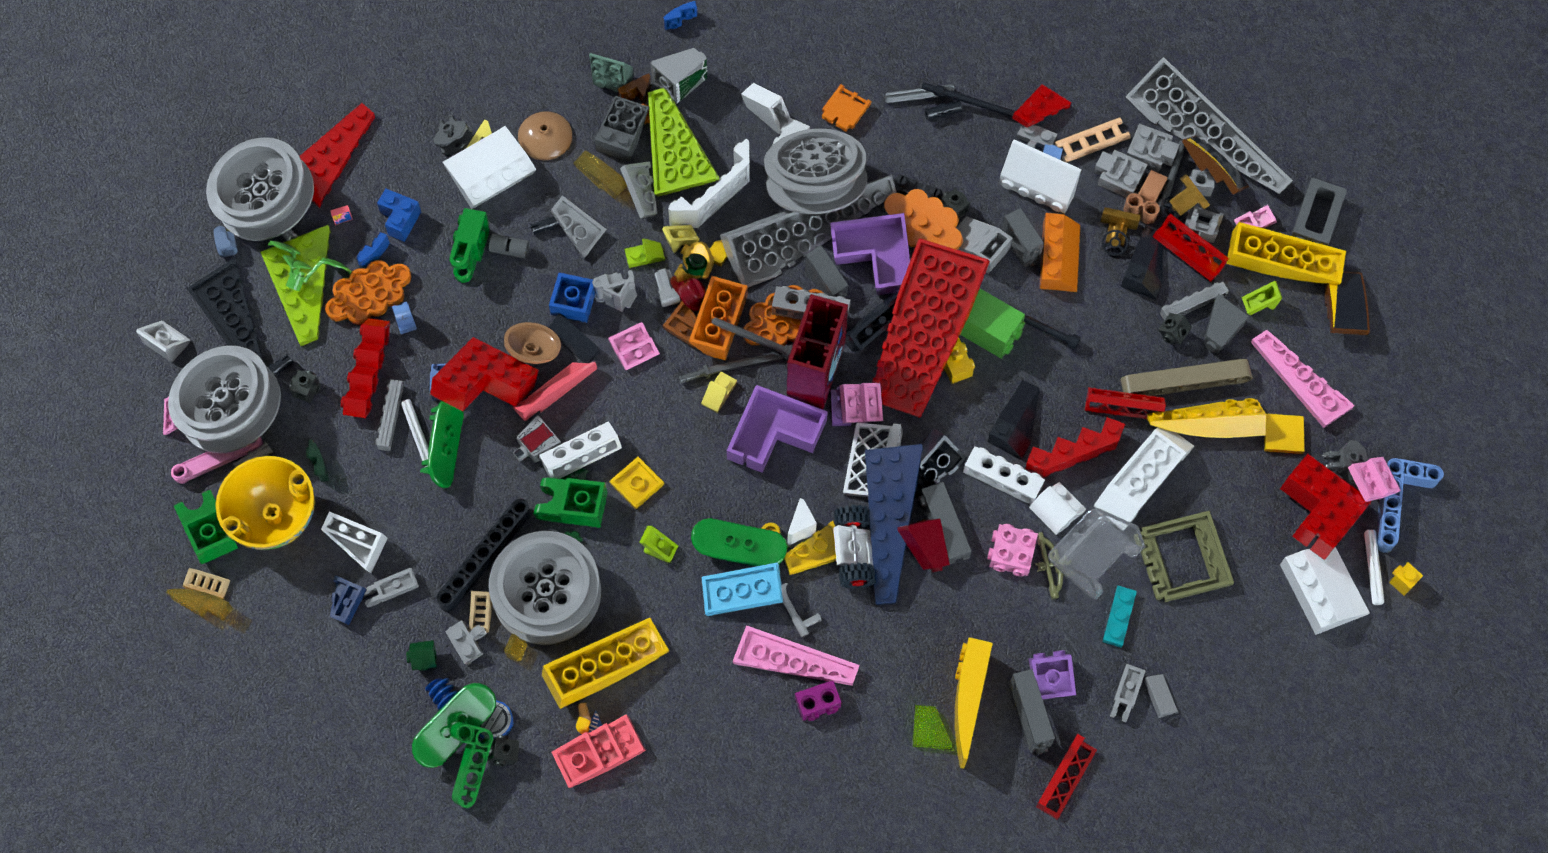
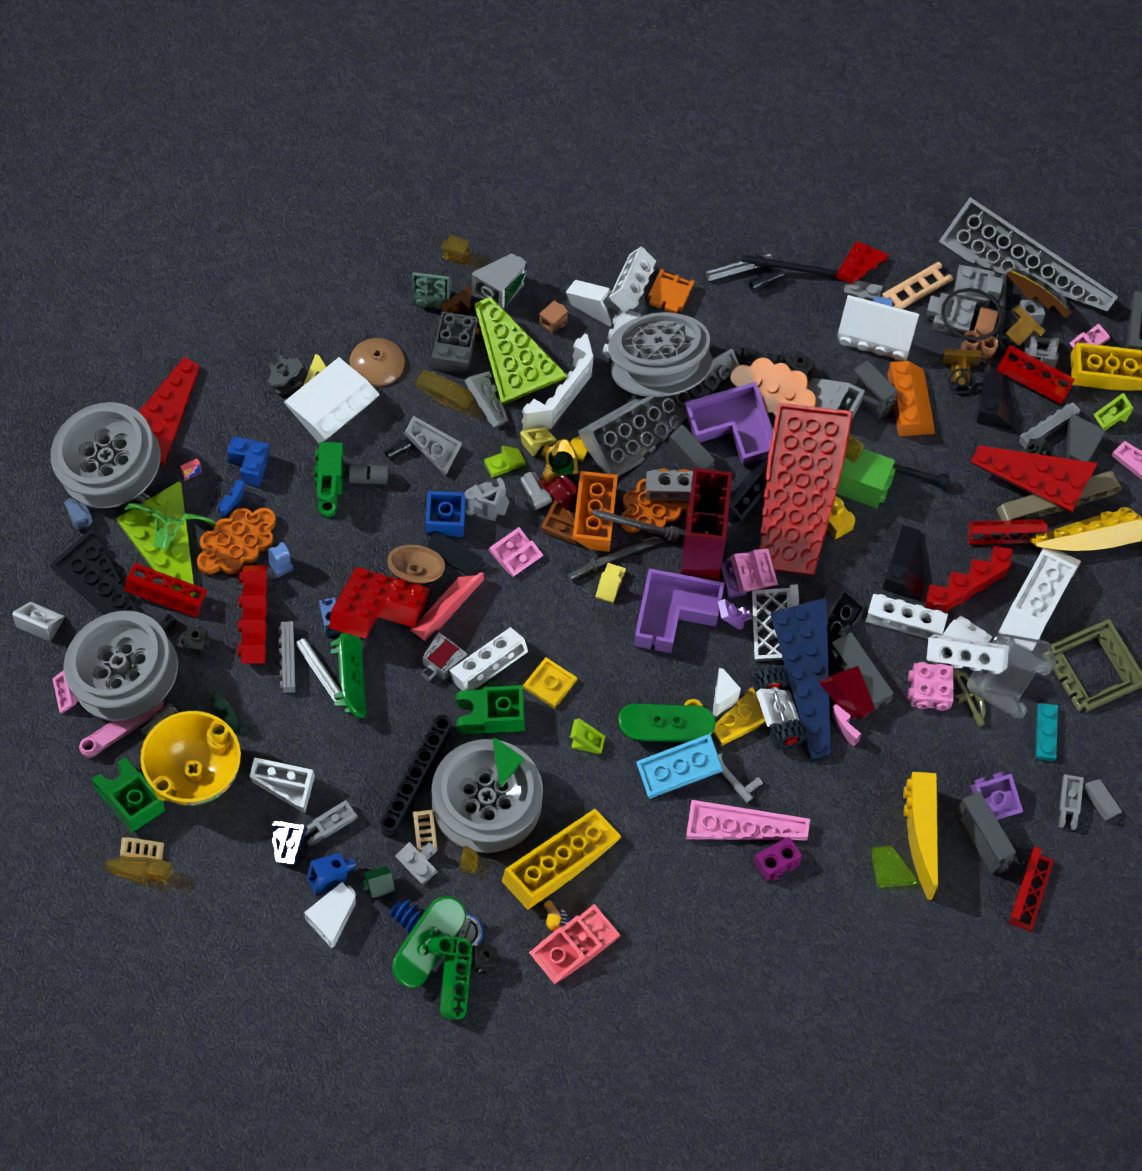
camera: 15 degrees left, 5 degrees down
(281, 333) = (163, 593): none -> red fence
(371, 678) = (332, 913): none -> white slope
(377, 637) = (329, 872): none -> blue torso
(566, 558) = (506, 761): none -> green tile
(645, 35) = (455, 249): none -> clear yellow brick
(674, 18) = (482, 226): blue slope -> none
(725, 116) = (553, 317): none -> nougat brick
(808, 91) = (633, 279): none -> white brick
(829, 444) = (732, 614): none -> medium lavender plate
(915, 570) = (841, 720): none -> bright pink slope
(984, 297) = (854, 449): none -> clear yellow slope
(1082, 528) = (997, 652): none -> white brick
(1132, 200) = (968, 337): none -> black piece
(1175, 354) = (1047, 477): none -> red wing

